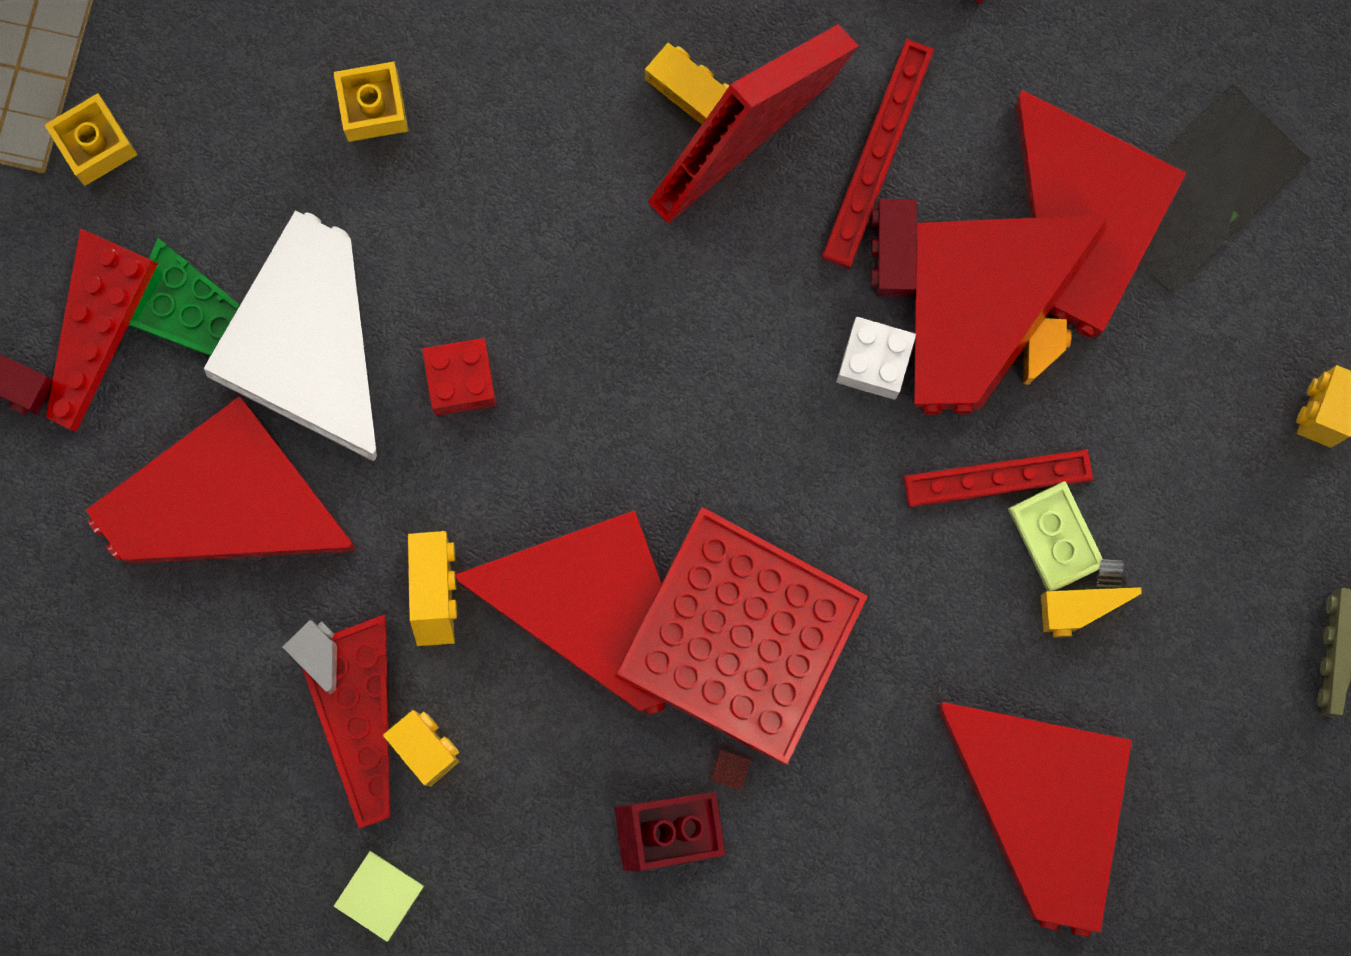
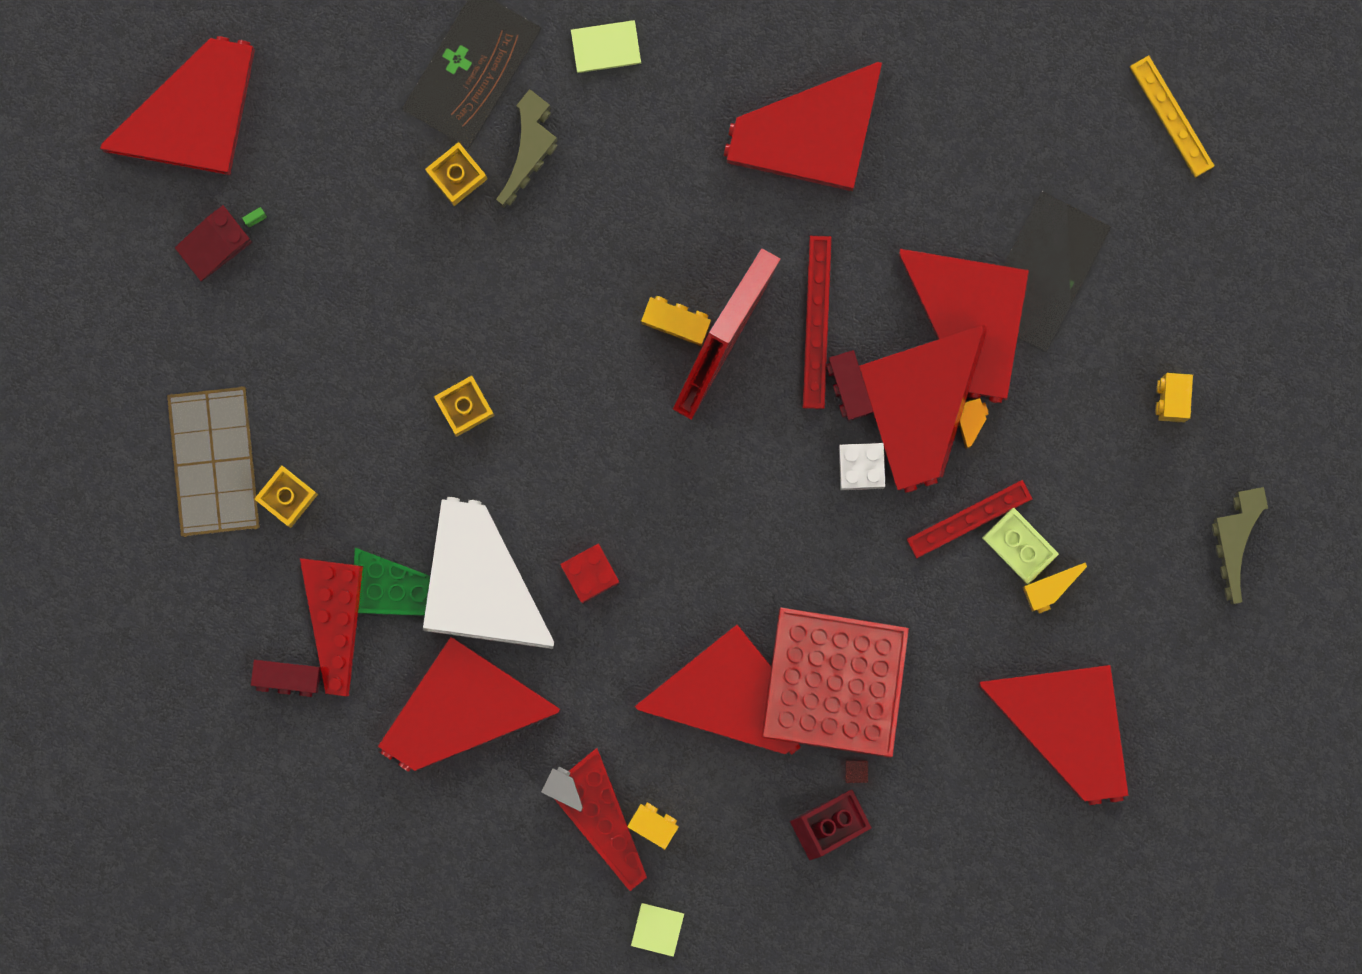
camera: 10 degrees left, 5 degrees up
(431, 588) = (622, 719): yellow wedge -> none
(1110, 574) = (1063, 559): sticker -> none

